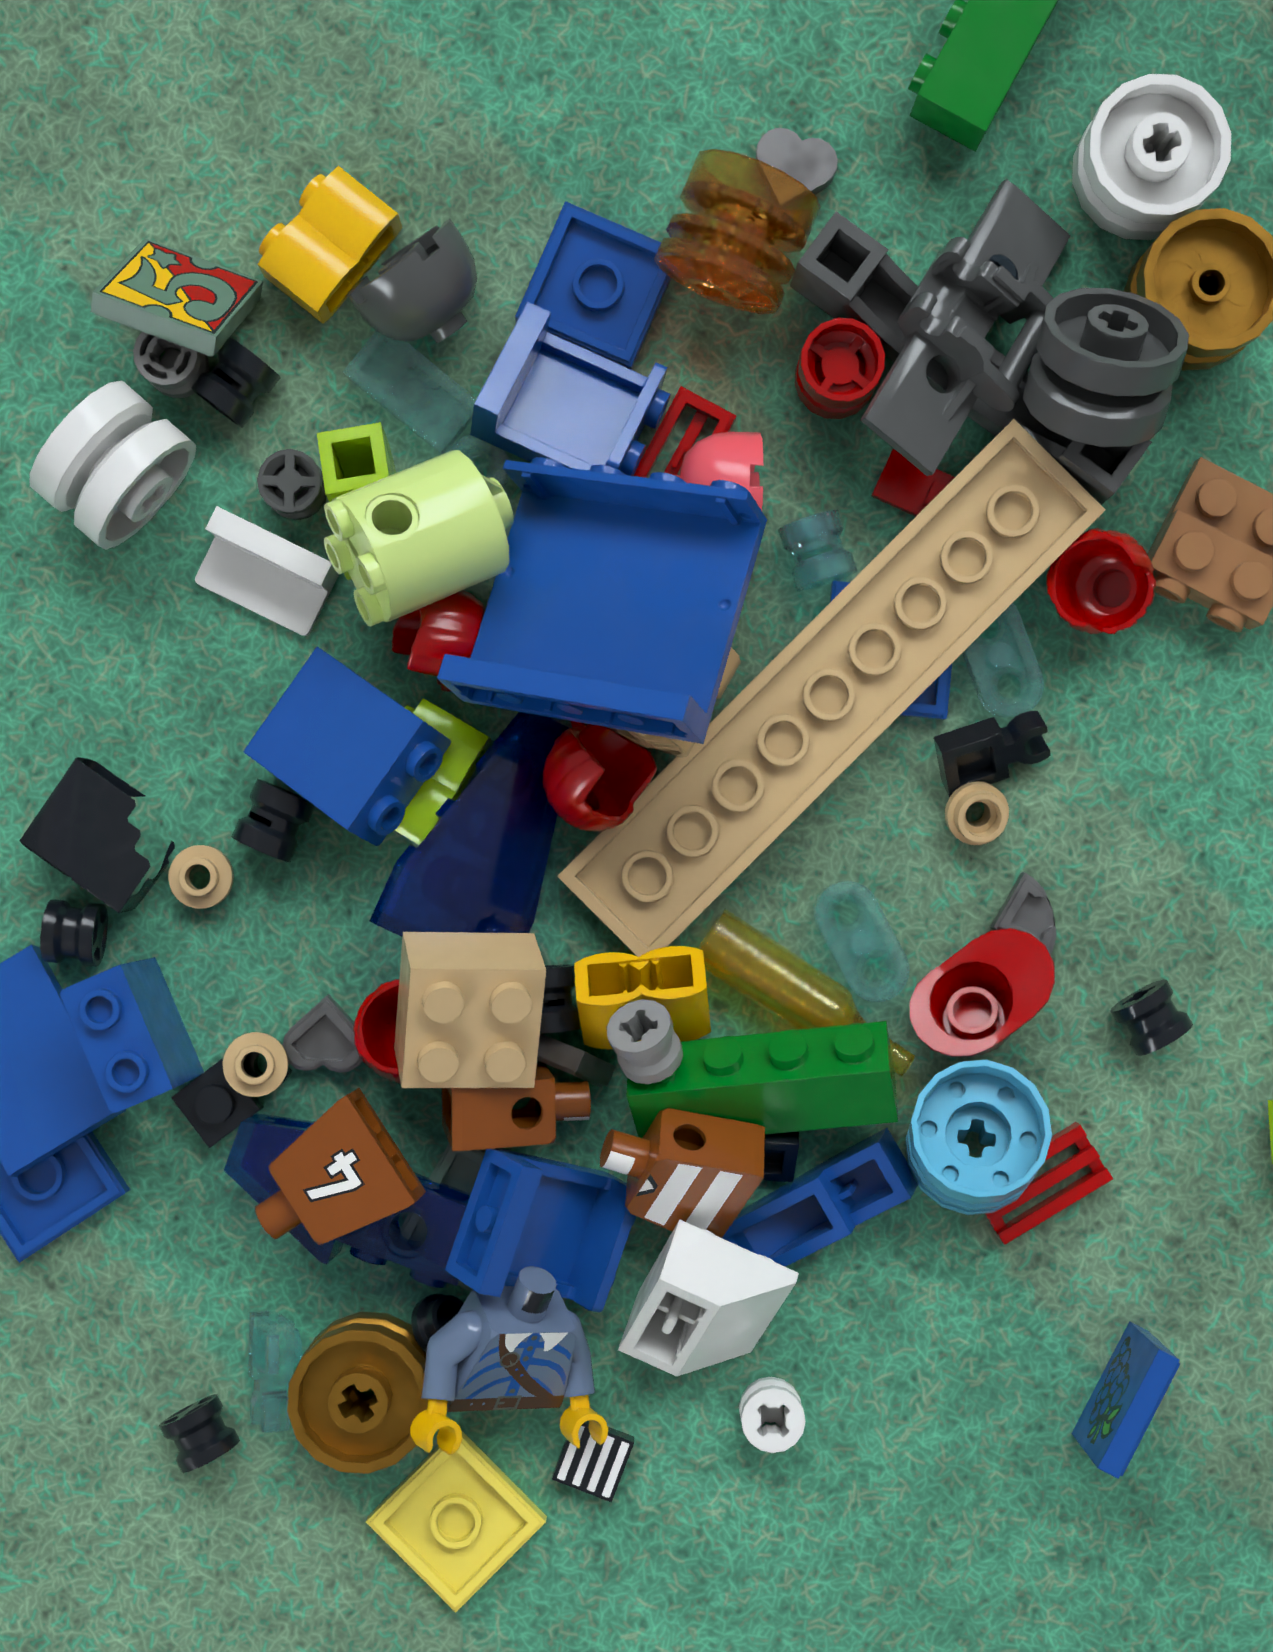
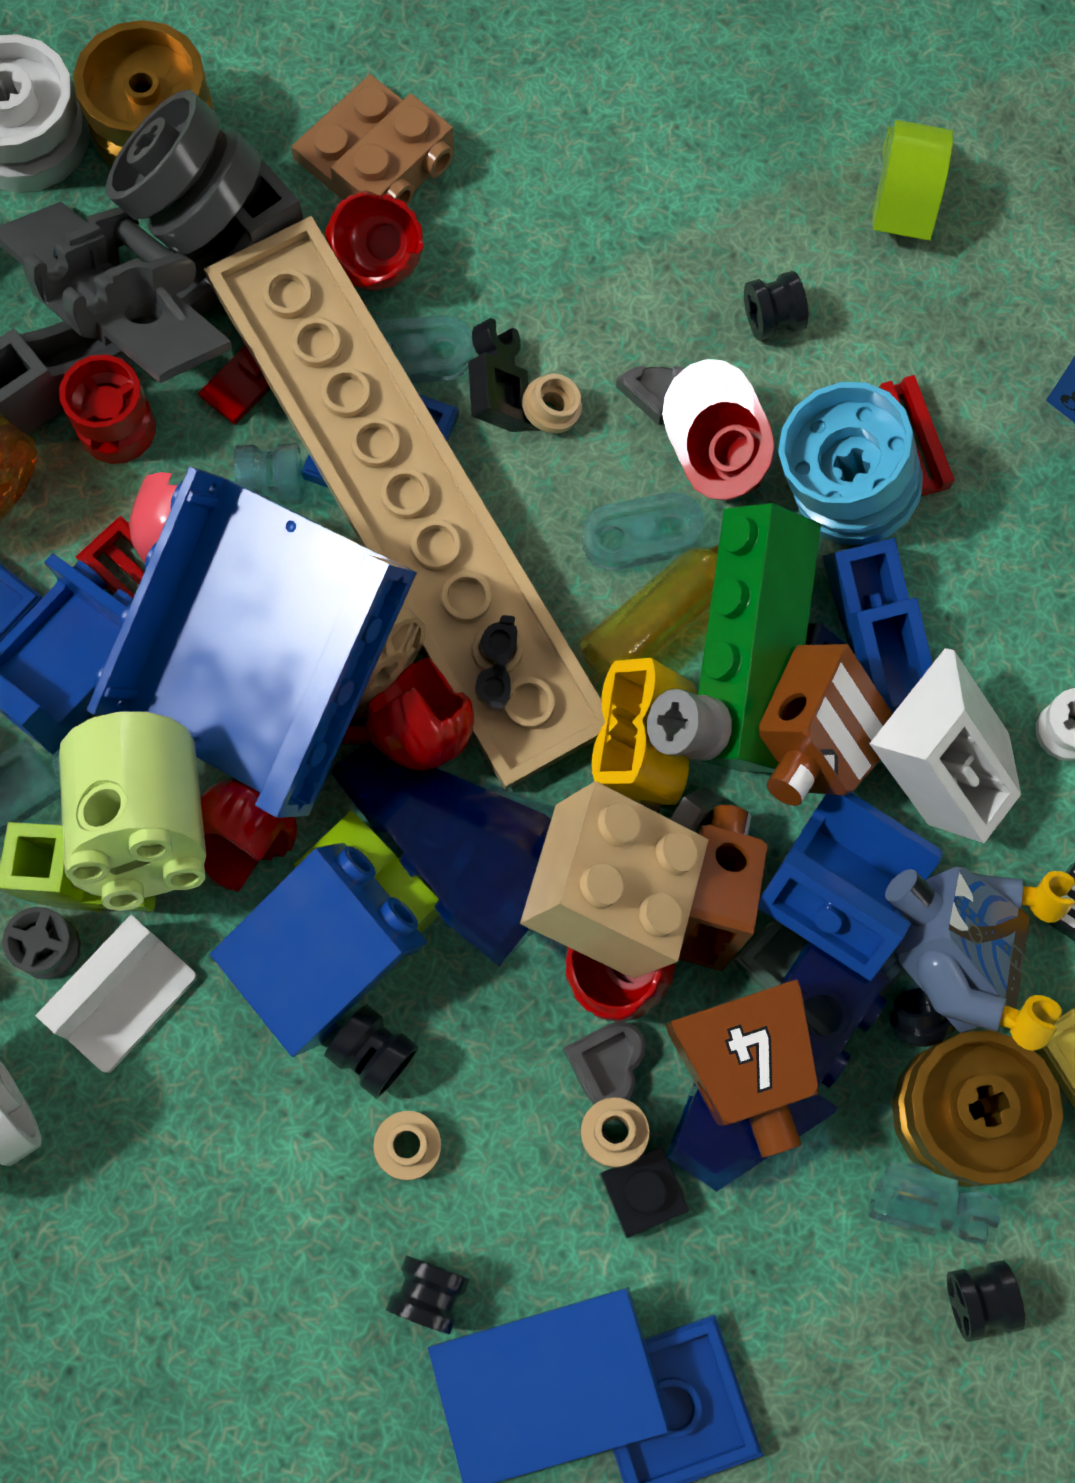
camera: 80 degrees left, 15 degrees down
(89, 837) = (332, 1240): black piece -> none
(131, 1033) = (552, 1246): blue panel -> none
(651, 836) = (497, 647): none -> black piece

